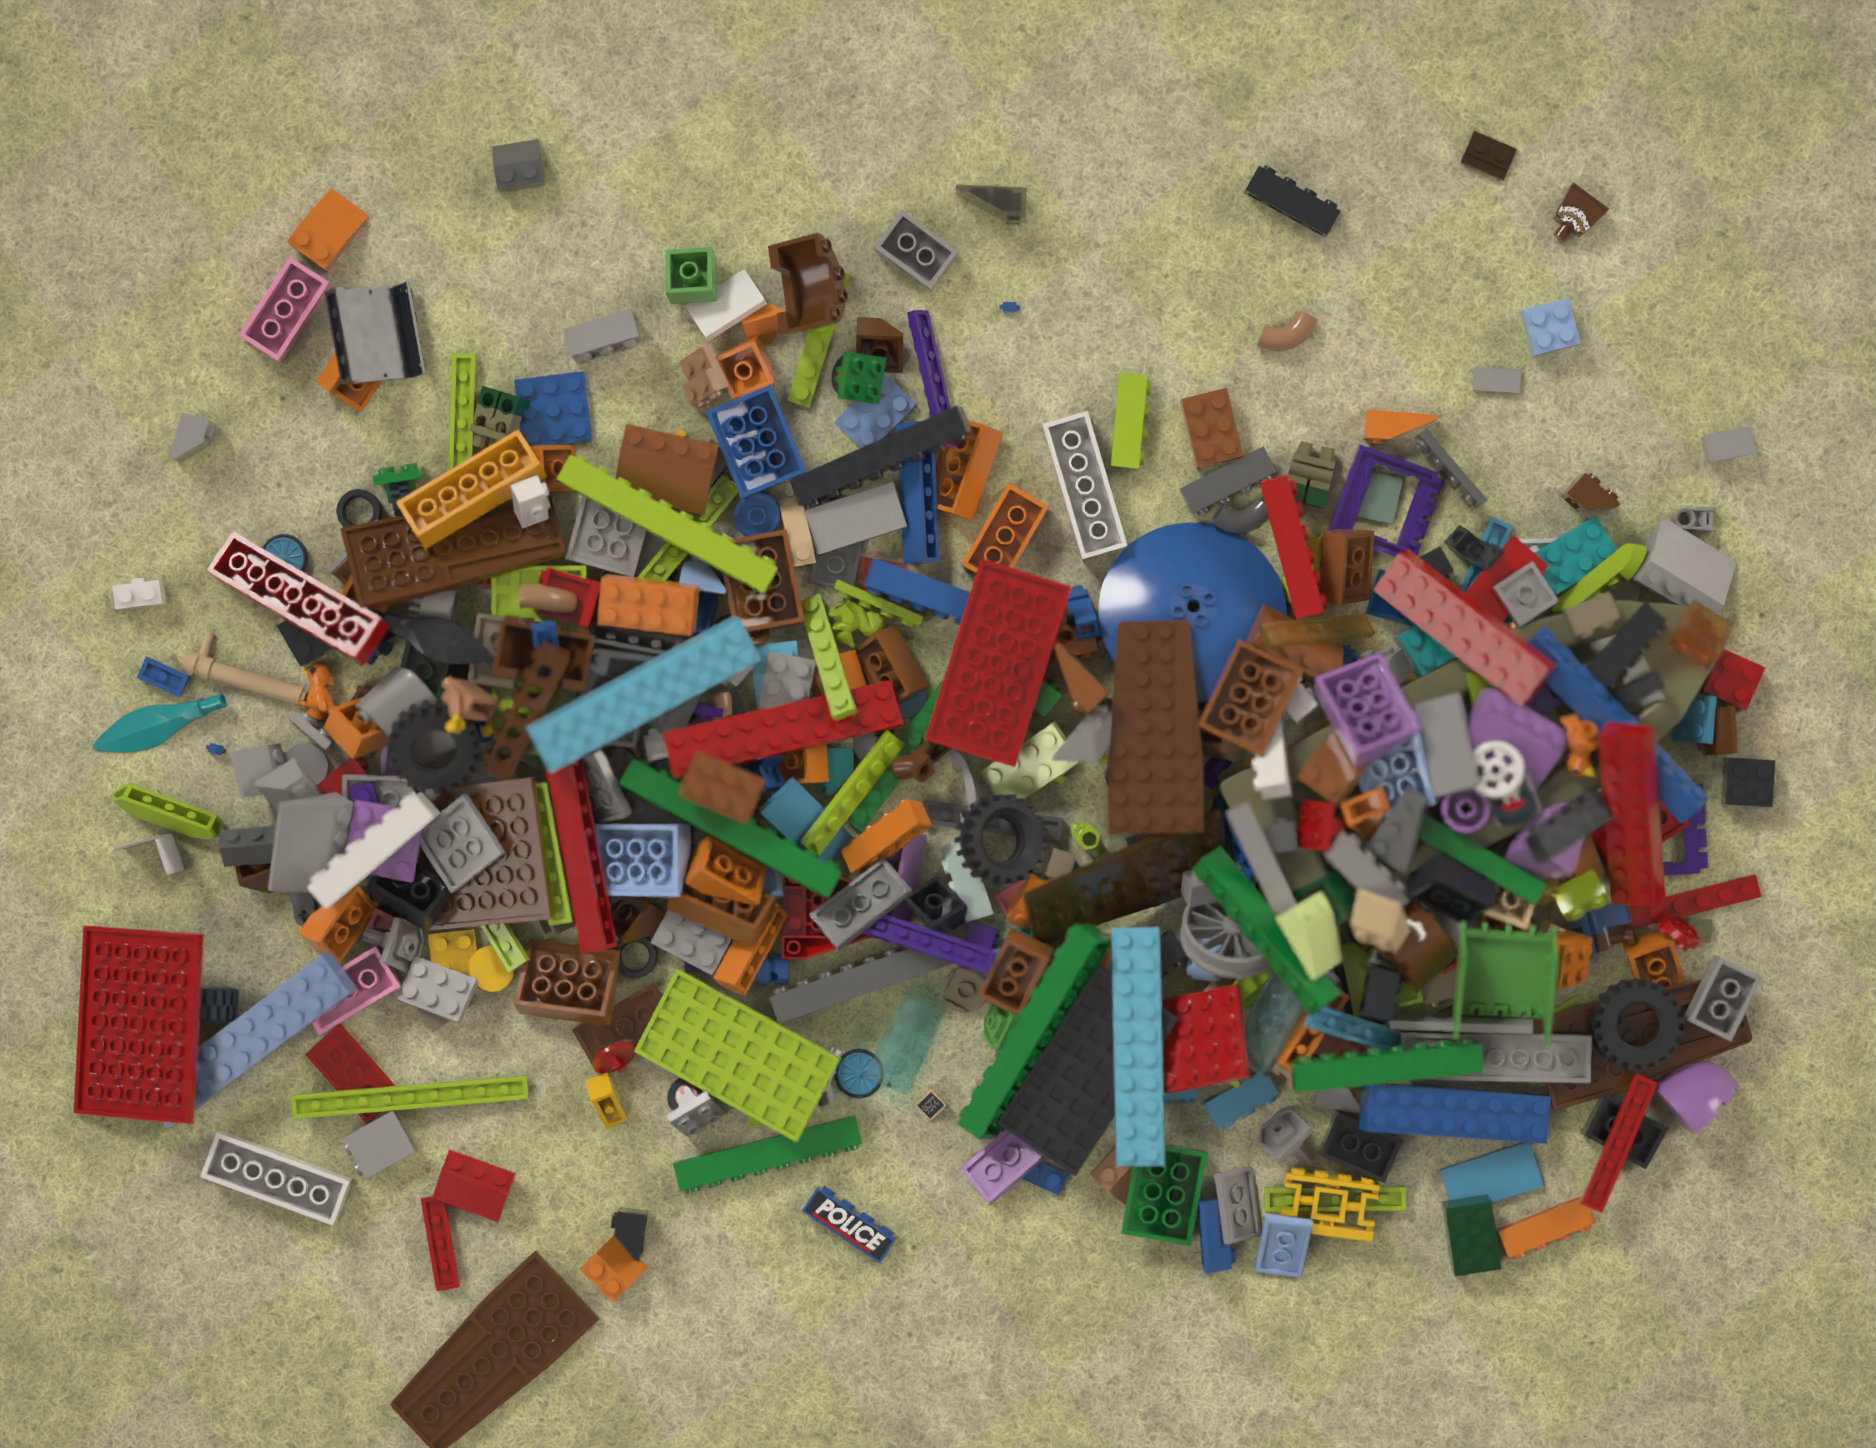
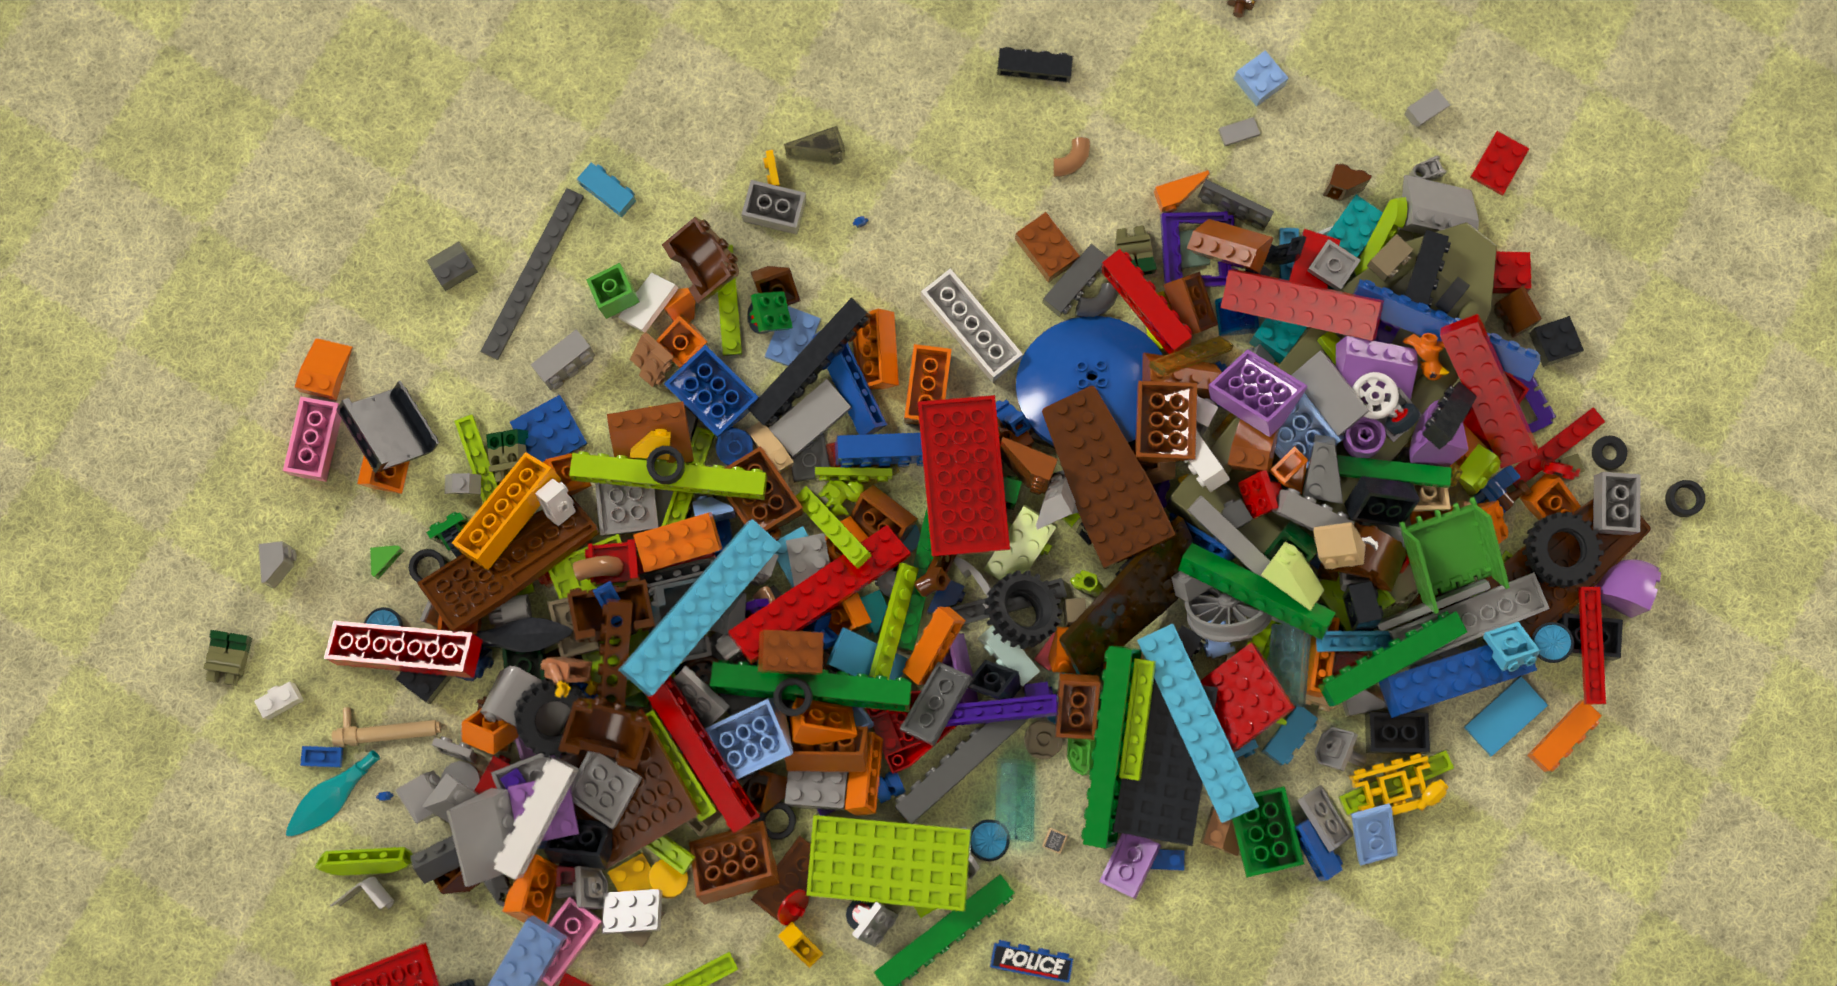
camera: 20 degrees left, 10 degrees down
(100, 519) = (226, 655): none -> olive hips
(312, 480) = (383, 558): none -> bright green slope
(319, 699) = (450, 722): orange animal -> none
(433, 432) = (462, 483): none -> light grey slope
(487, 786) = (606, 730): none -> reddish brown cylinder
(607, 213) = (532, 274): none -> dark grey plate
(655, 501) = (665, 479): none -> black tyre
(663, 482) = (652, 440): none -> yellow slope
(692, 848) = (778, 701): none -> black tyre
(732, 147) = (606, 189): none -> dark azure brick
(928, 789) = (948, 597): none -> dark blue slope
(929, 363) = (817, 283): dark purple plate -> none
(933, 194) = (769, 162): none -> yellow plate
(1074, 1015) = (1137, 719): none -> lime plate
(1128, 421) = (984, 267): lime brick -> none
(1366, 1230) = (1433, 794): none -> yellow plant
(1420, 518) = (1230, 245): none -> dark orange slope
(1471, 1235) = (1512, 765): dark green brick -> none
(1526, 1107) = (1511, 647): none -> medium azure plate
(1577, 1120) = (1554, 642): none -> dark azure wheel
(1698, 722) = (1502, 311): dark azure plate -> none
(1701, 634) = (1477, 240): clear orange slope -> none
(1759, 944) = (1617, 444): none -> black tyre
(1784, 543) = (1499, 163): none -> red plate
(1827, 1021) = (1695, 488): none -> black tyre

